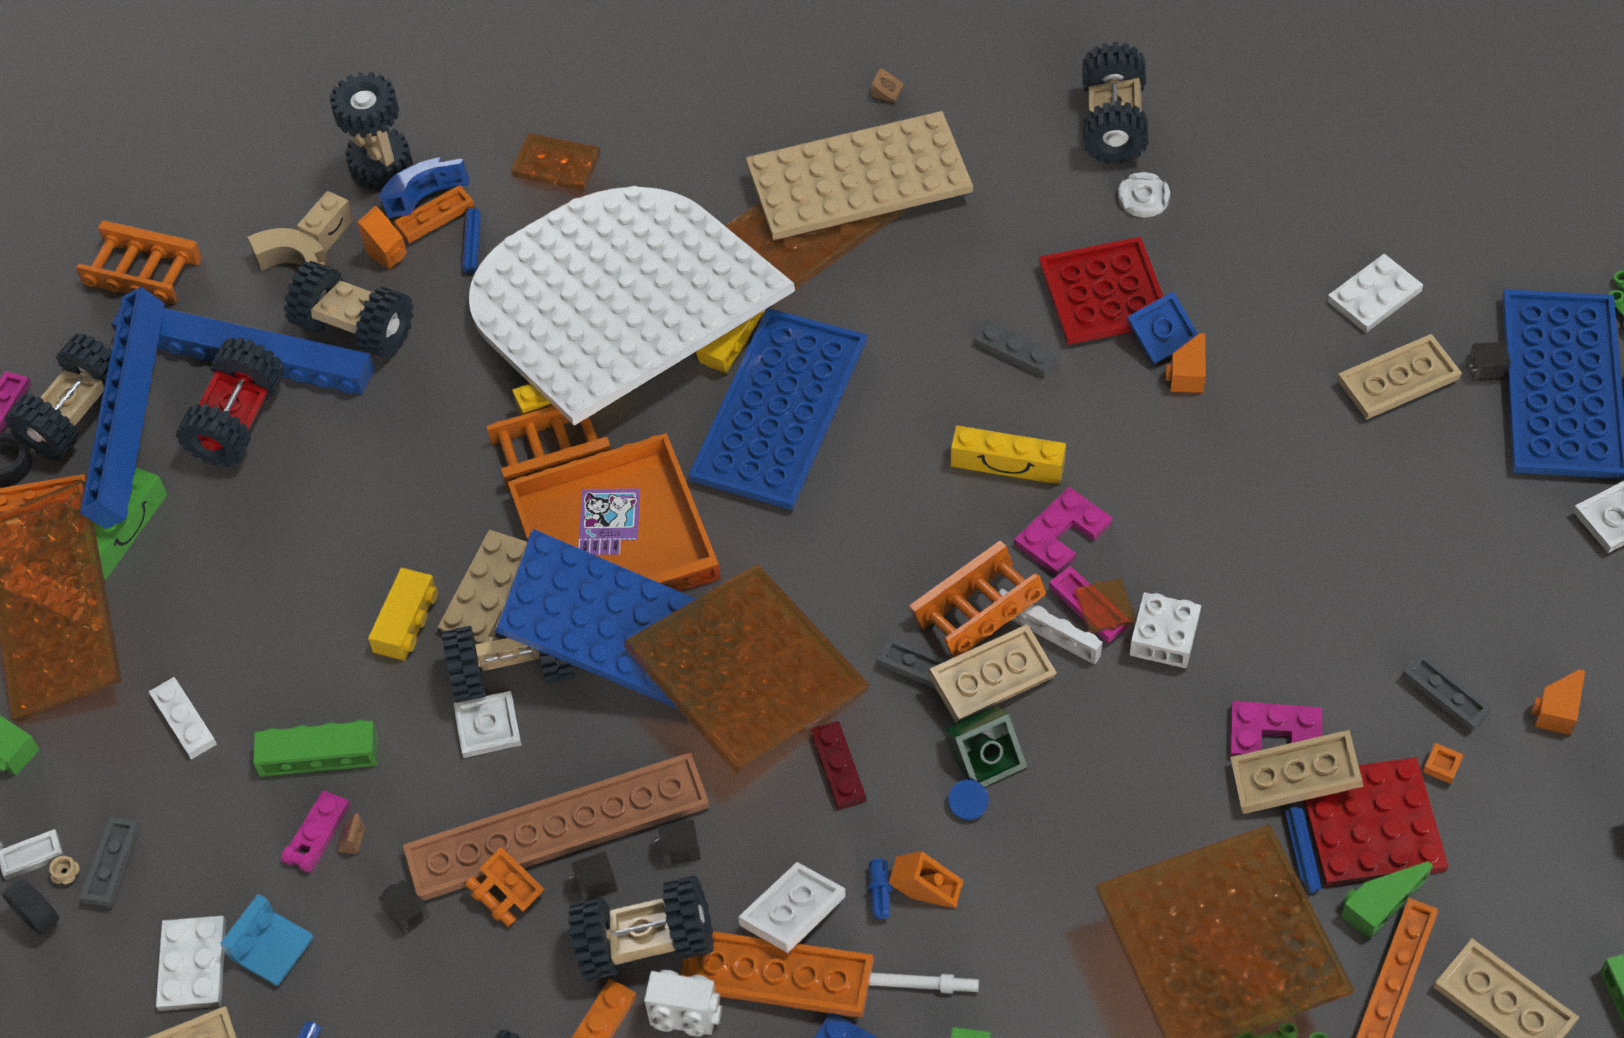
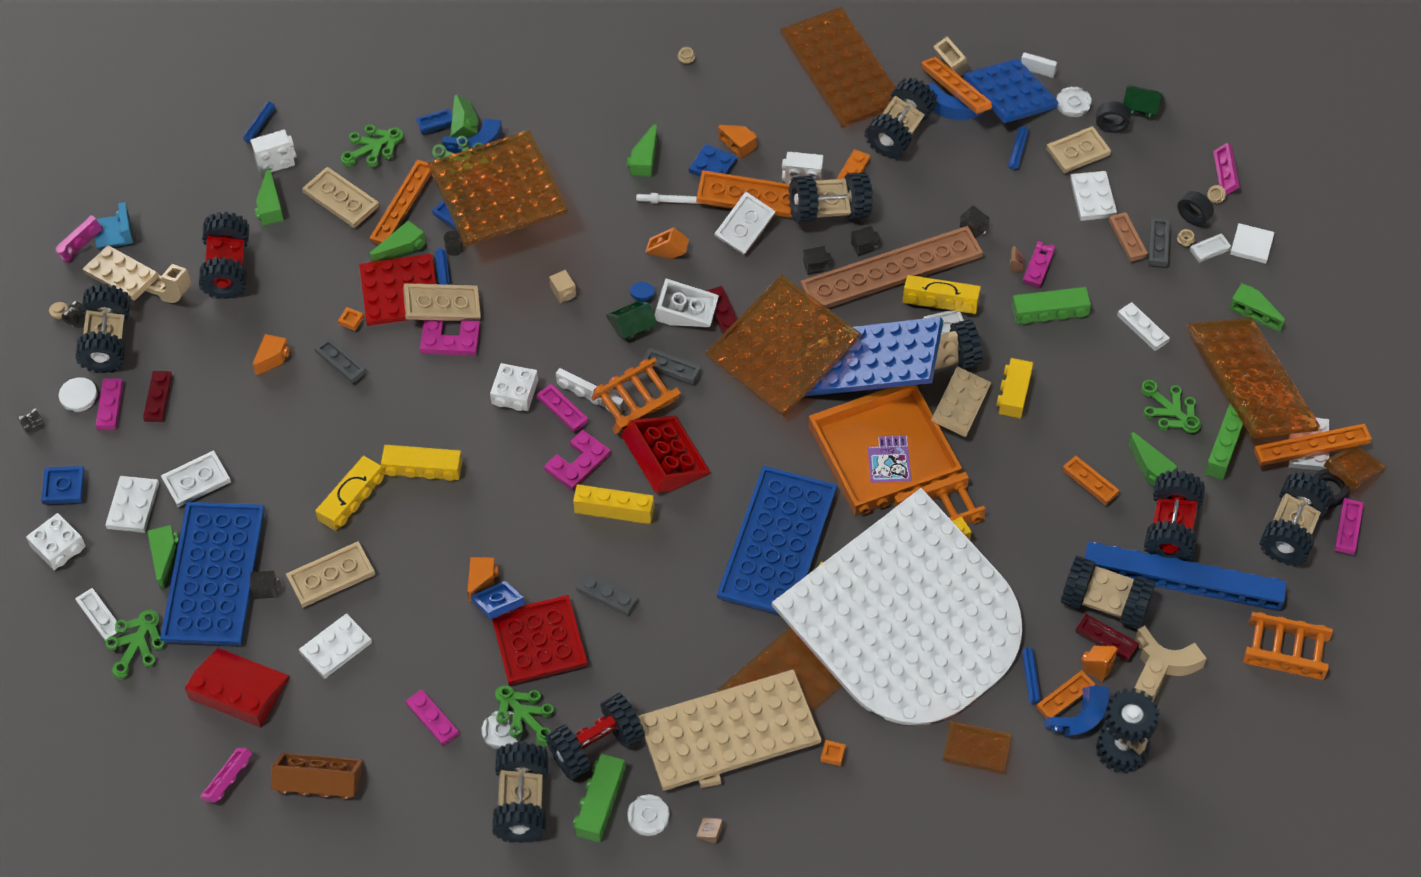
camera: 175 degrees right, 0 degrees up
(123, 409) = (1247, 496): blue brick -> none
(157, 873) = (1128, 237): none -> nougat plate
(181, 581) = (1171, 409): none -> bright green plant
(233, 491) = (1149, 459): none -> bright green slope
(265, 942) = (1050, 203): dark azure bracket -> none
(329, 478) = (1090, 480): none -> orange plate
(361, 274) = (1106, 636): none -> dark red plate
(484, 765) = (941, 294): none -> yellow brick
(511, 880) = (916, 230): orange plate -> none
(732, 158) = (832, 753): none -> orange plate
(879, 888) = (694, 242): blue axle -> none
(899, 758) = (685, 305): none -> white slope
(930, 527) = (664, 452): none -> red slope
(960, 105) = (648, 815): none -> white tile
(991, 673) = (626, 354): tan plate -> none
(1004, 170) = (617, 719): none -> black plate
(1018, 114) = (600, 797): none -> bright green brick
(1099, 807) = (562, 286): none -> tan brick
(1105, 605) = (552, 401): clear orange piece -> none
(1119, 208) = (522, 711): none -> bright green plant
(1234, 209) = (432, 717): none -> dark pink plate
(1293, 524) = (421, 462): none -> yellow brick
(1370, 145) = (316, 775): none -> dark orange slope
(1391, 482) = (350, 493): none -> yellow brick
(1483, 144) = (226, 775): none -> dark pink plate
(1495, 241) = (236, 686): none -> red slope

